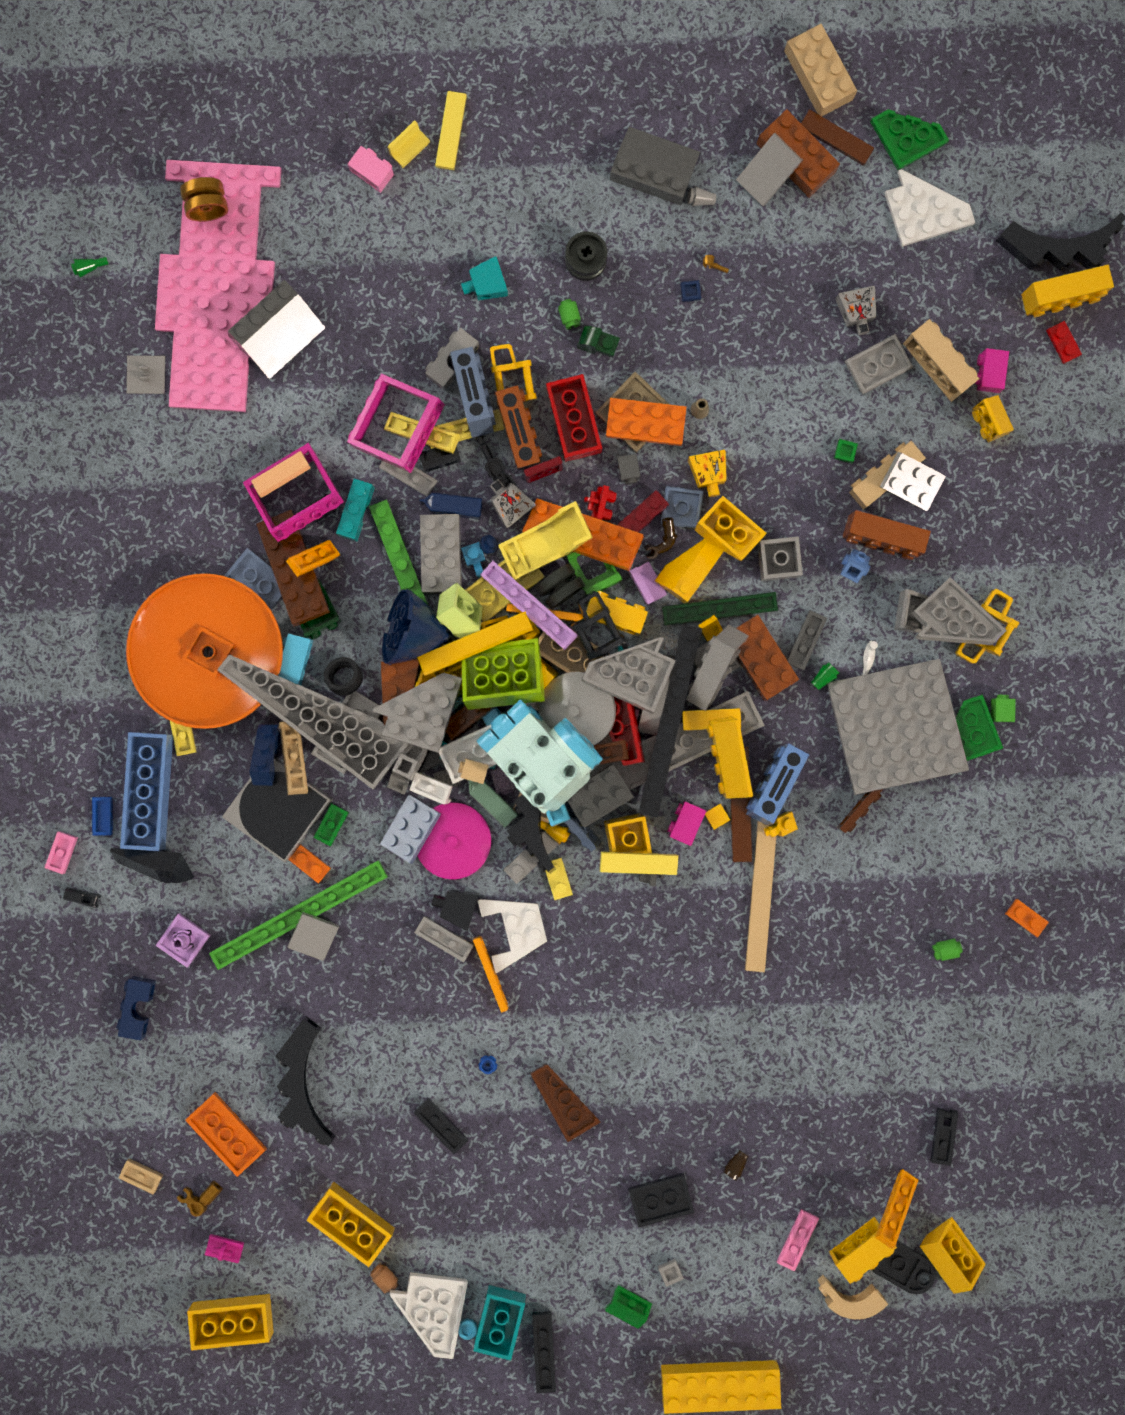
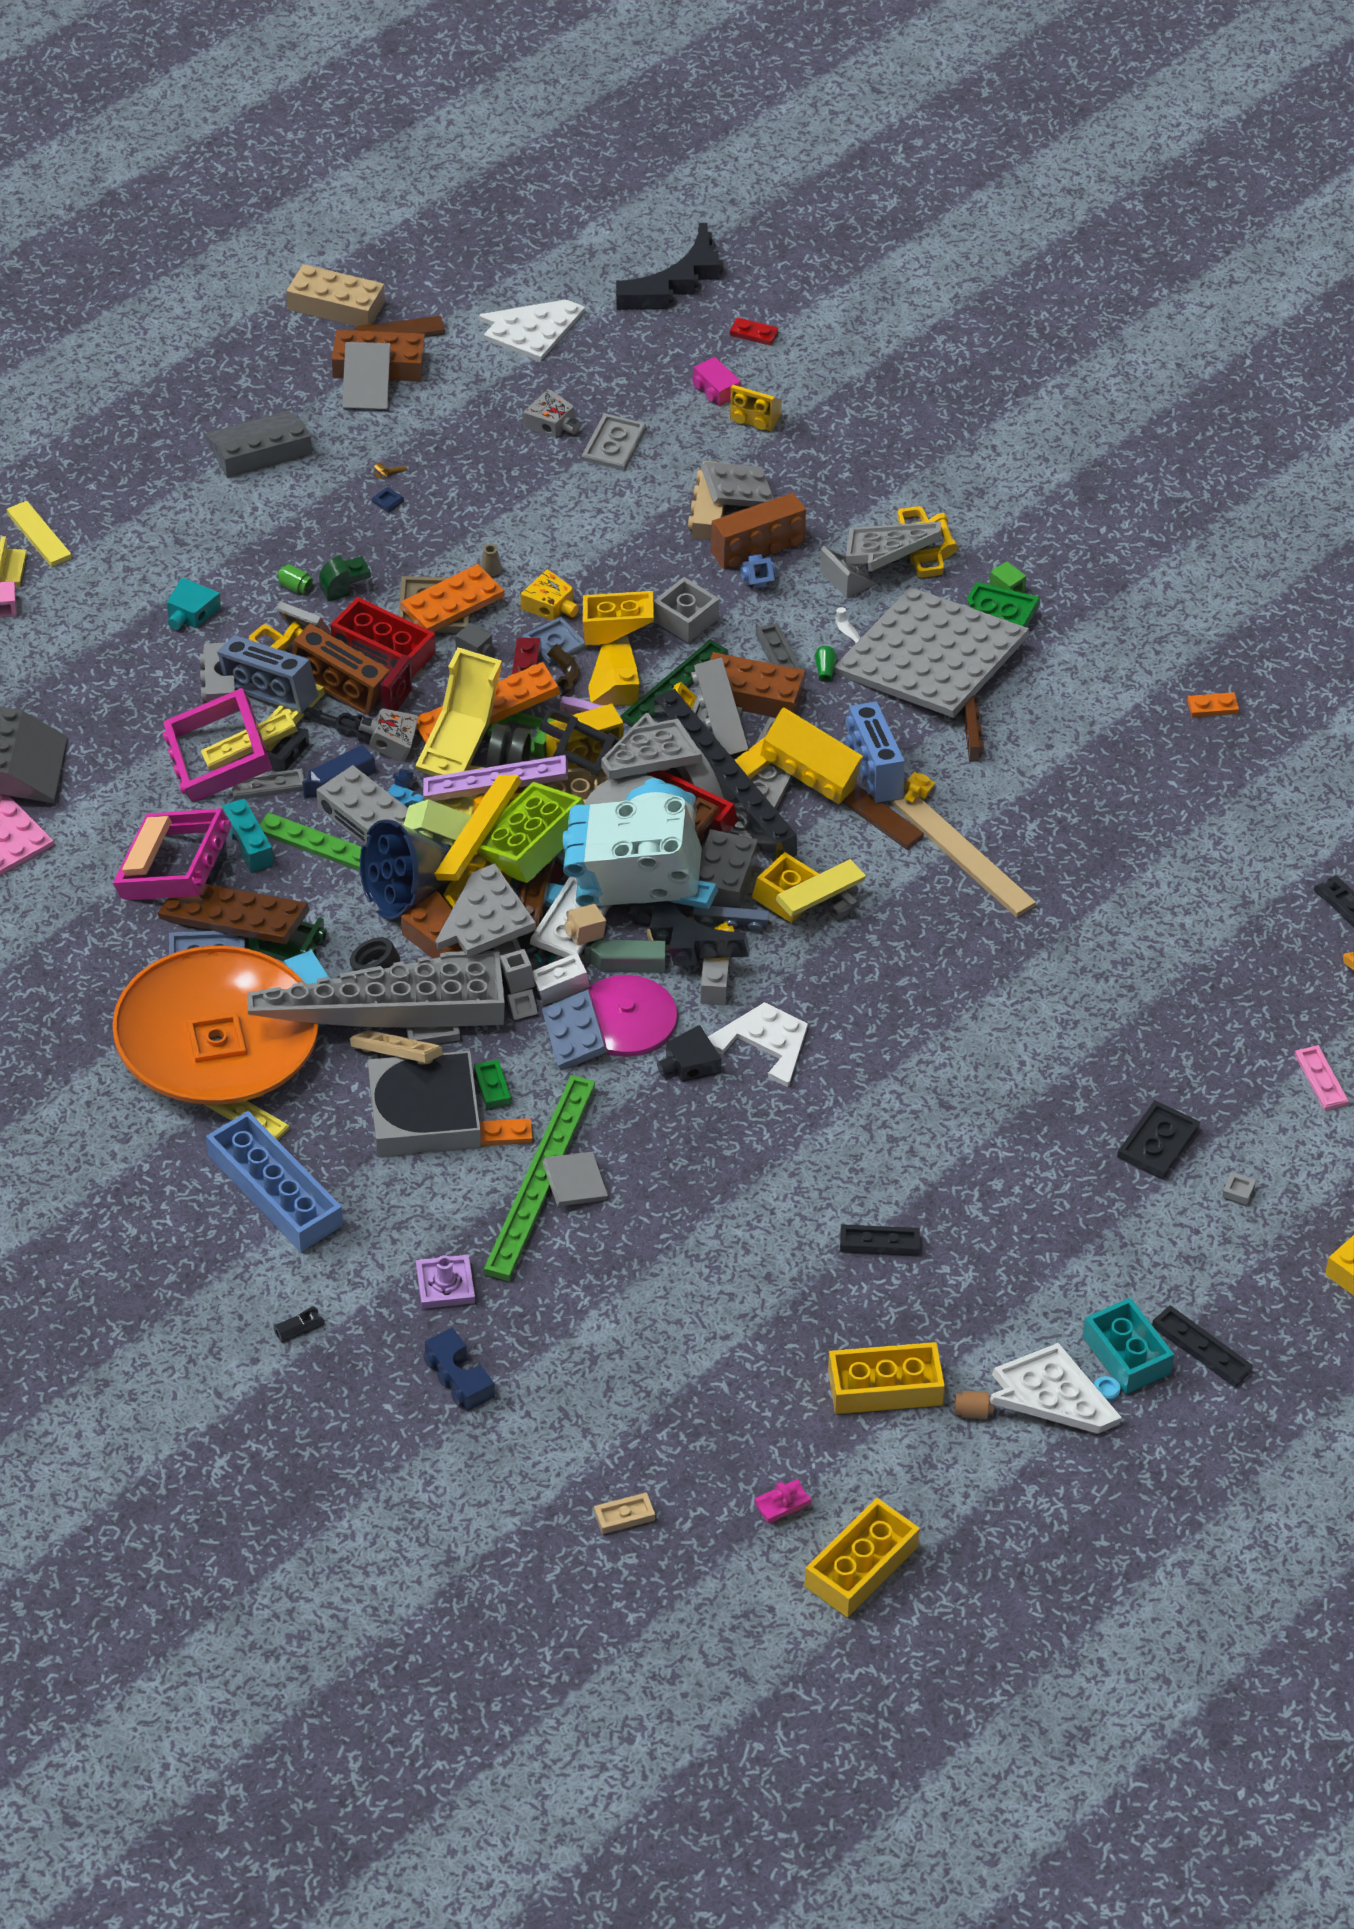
camera: 45 degrees left, 40 degrees down
(61, 852) = (236, 1302): bright pink plate -> none
(102, 816) = (246, 1245): blue tile -> none
(159, 865) = (353, 1228): black wedge -> none
(199, 1205) = (714, 1492): pearl gold bar -> none
(226, 1134) = (672, 1409): orange plate -> none
(262, 762) = (366, 1055): dark blue arch -> none
(300, 1109) = (694, 1312): black arch -> none
(313, 558) = (247, 886): light orange tile -> none
(444, 938) = (706, 1092): light grey plate -> none
(487, 1069) = (869, 1154): blue plate -> none
(490, 972) = (783, 1083): light orange tile -> none
(502, 782) = (621, 928): brick -> none
(537, 362) = (293, 614): none -> light grey tile
(559, 881) = (761, 973): light yellow plate -> none
(564, 1105) = (986, 1138): reddish brown wing -> none
(587, 245) = (266, 529): pearl dark grey wheel -> none
(629, 1307) = (1237, 1250): green panel -> none
(686, 823) = (829, 843): dark pink brick -> none
(699, 197) = (324, 435): light grey cone -> none
(717, 816) = (852, 826): yellow tile -> none
(736, 1165) = (1193, 1062): dark brown cone -> none
(845, 451) = (655, 510): green plate -> none
(907, 137) = (461, 294): green plate -> none
(941, 360) = (664, 397): tan brick -> none
(947, 949) = (1174, 771): bright green brick -> none
(1067, 291) = (715, 292): yellow brick -> none

